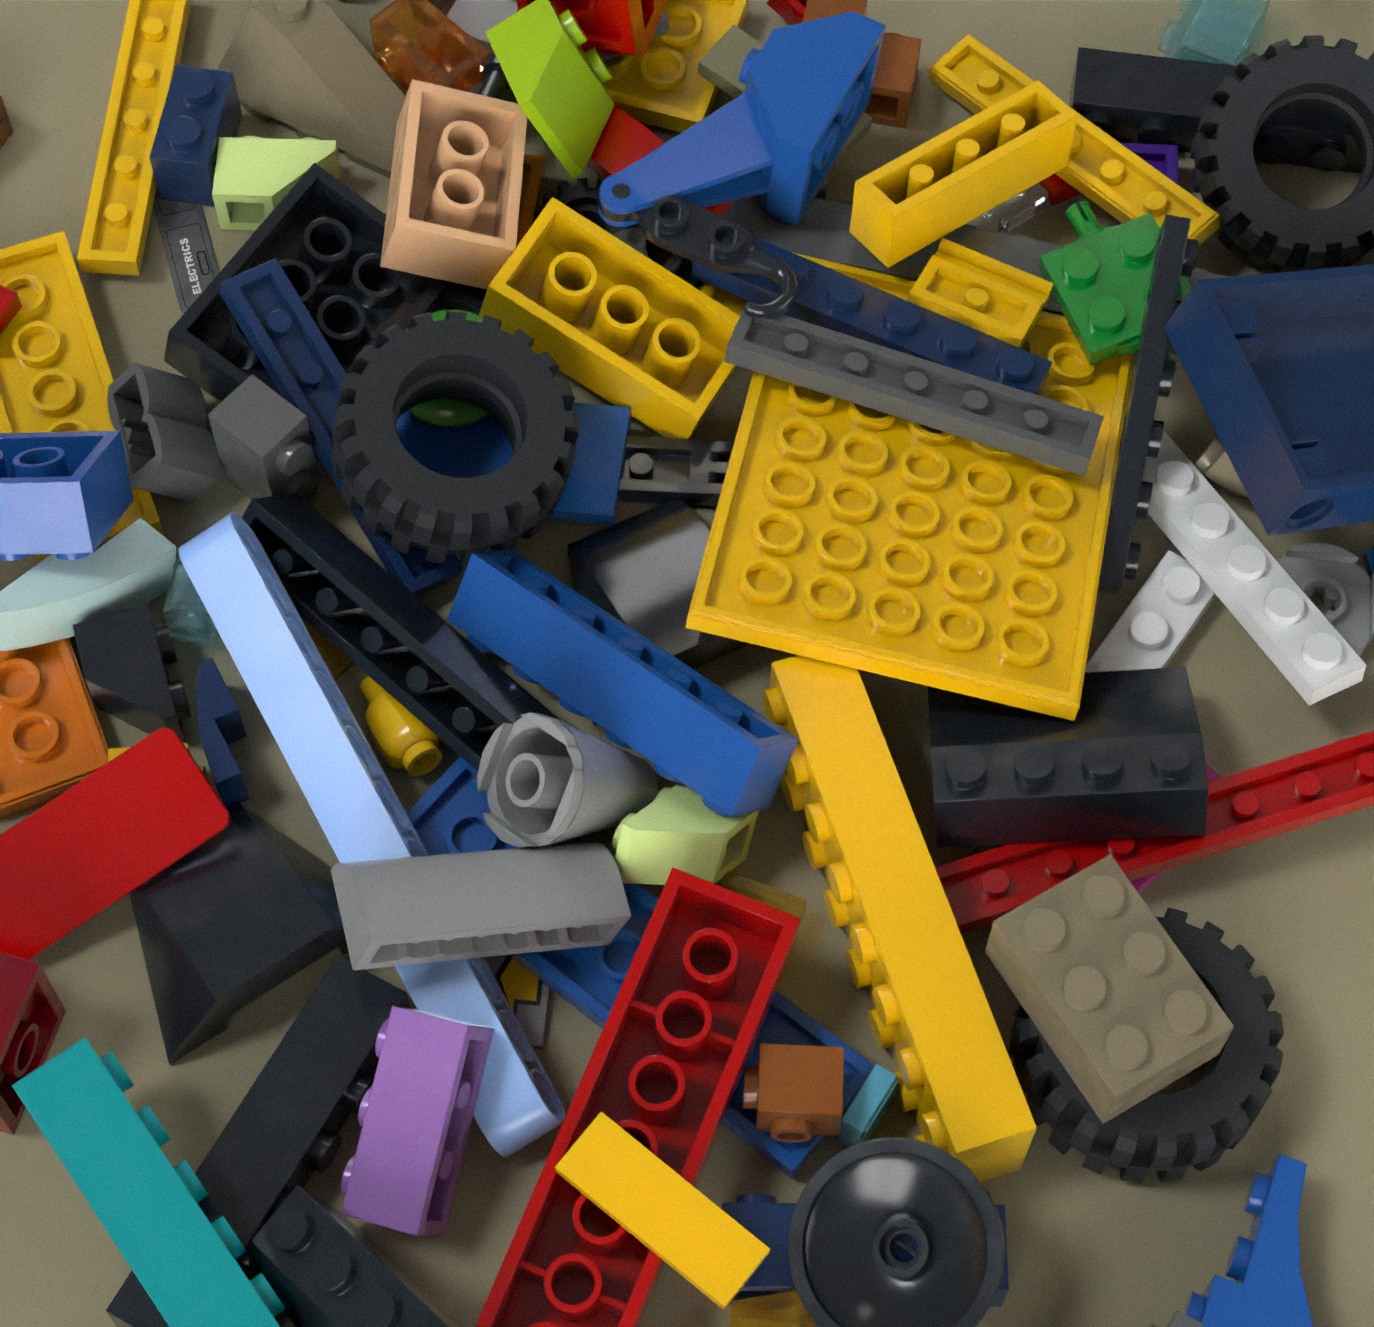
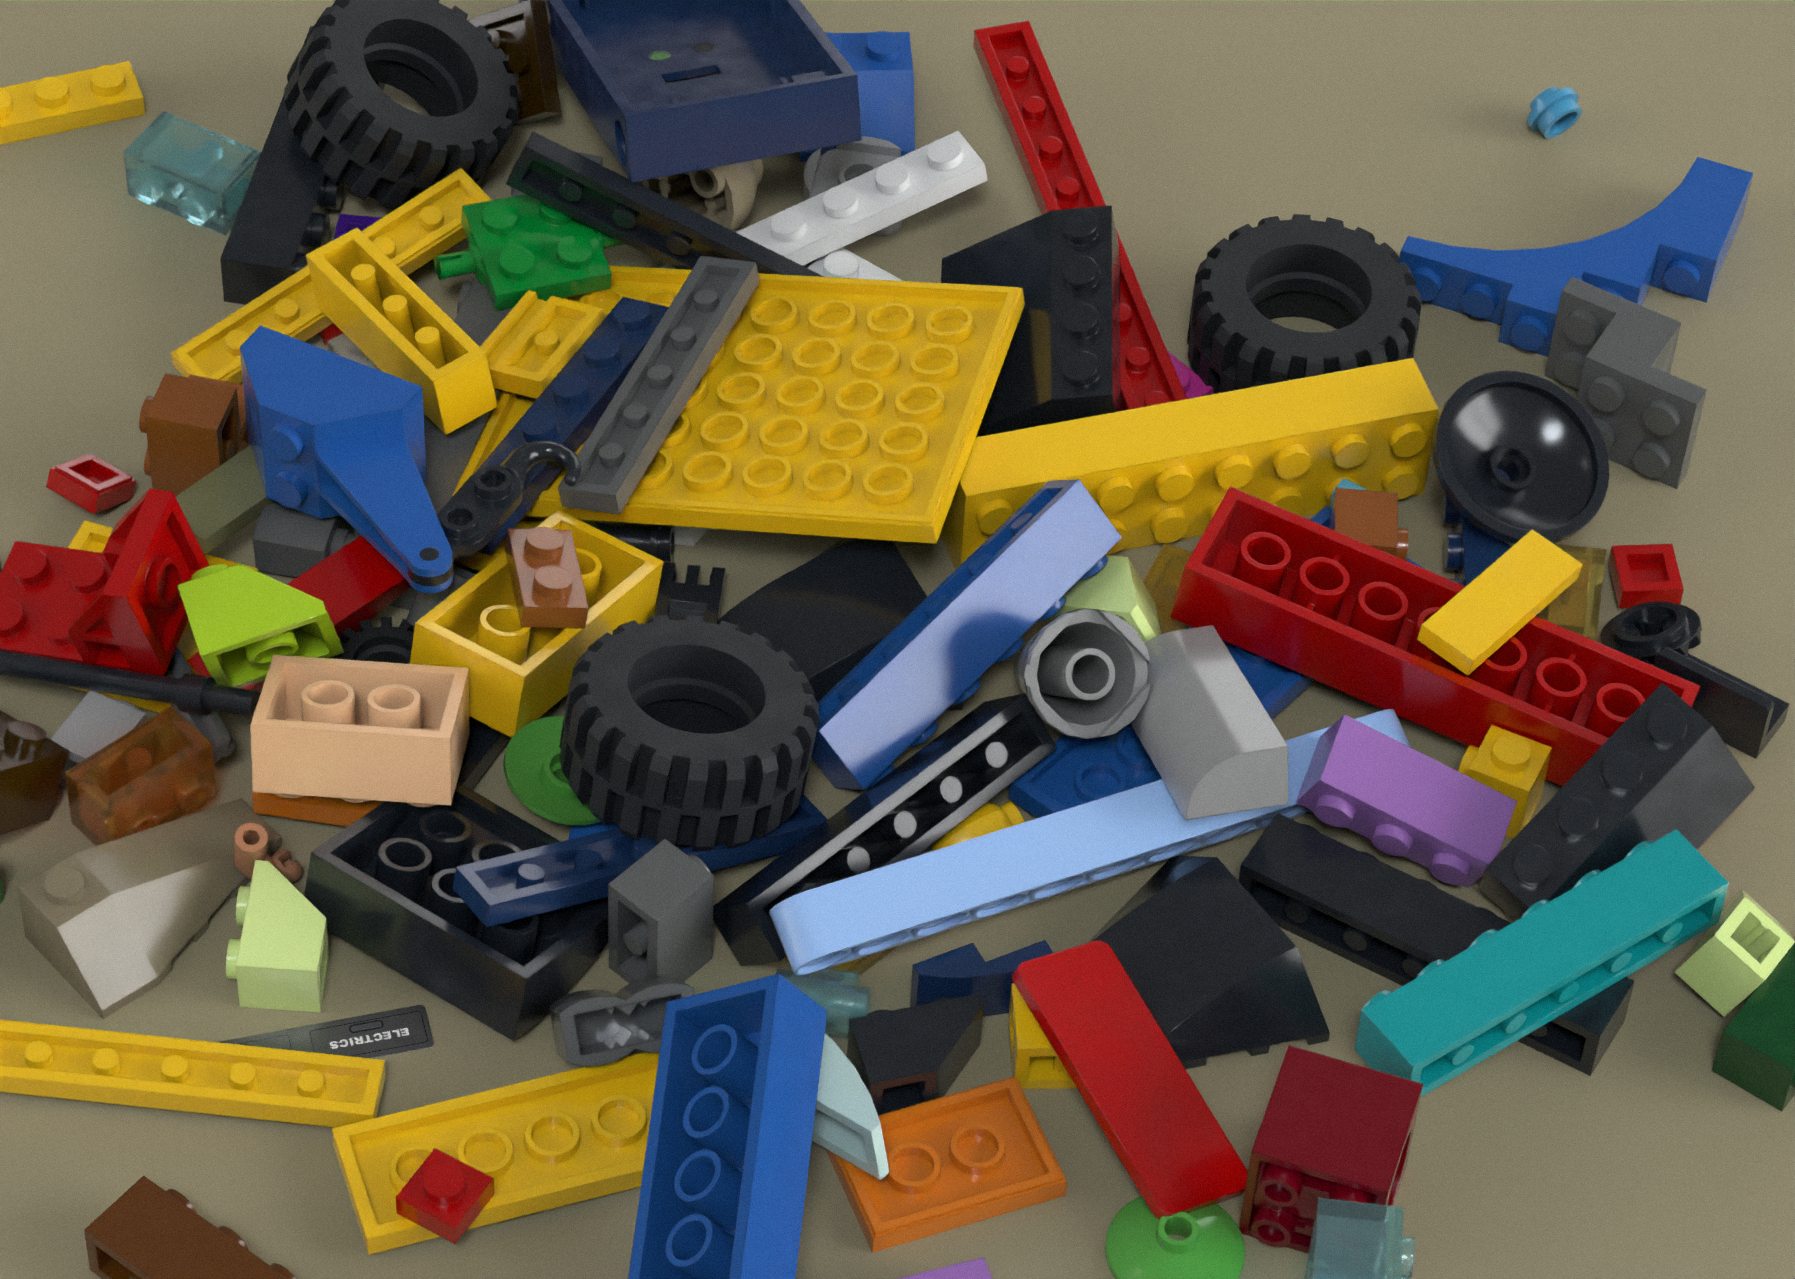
camera: 90 degrees left, 15 degrees down
(196, 113) = (210, 998): dark blue brick -> none
(357, 157) = (251, 845): none -> nougat arm
(475, 1237) = (1511, 767): none -> yellow brick
(632, 304) = (546, 578): none -> dark orange plate
(1107, 988) = (1295, 291): dark tan brick -> none

